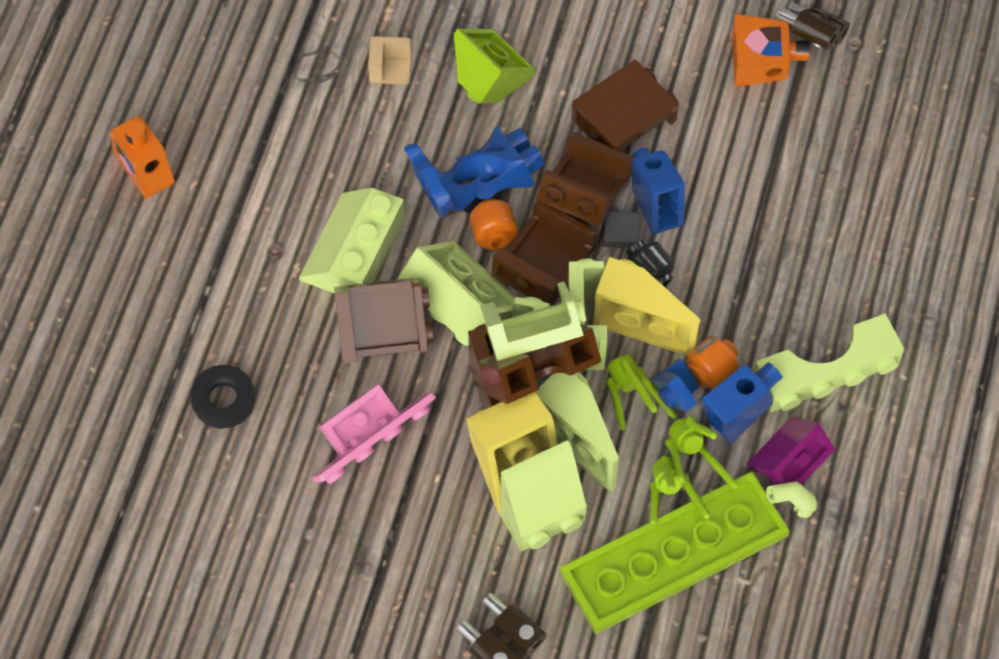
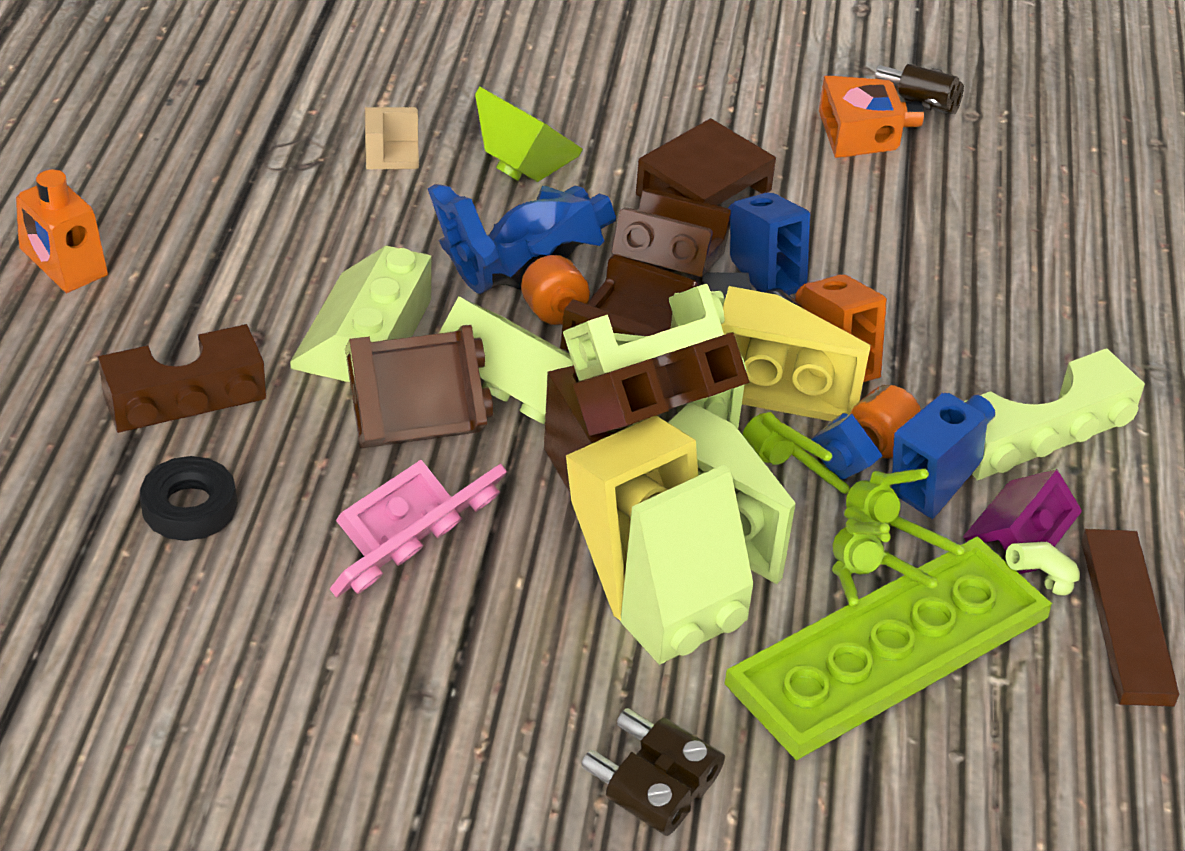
camera: 10 degrees left, 20 degrees down
(198, 306) = (151, 393): none -> reddish brown arch
(693, 265) = (851, 308): none -> orange torso
(844, 539) = (1129, 618): none -> reddish brown tile

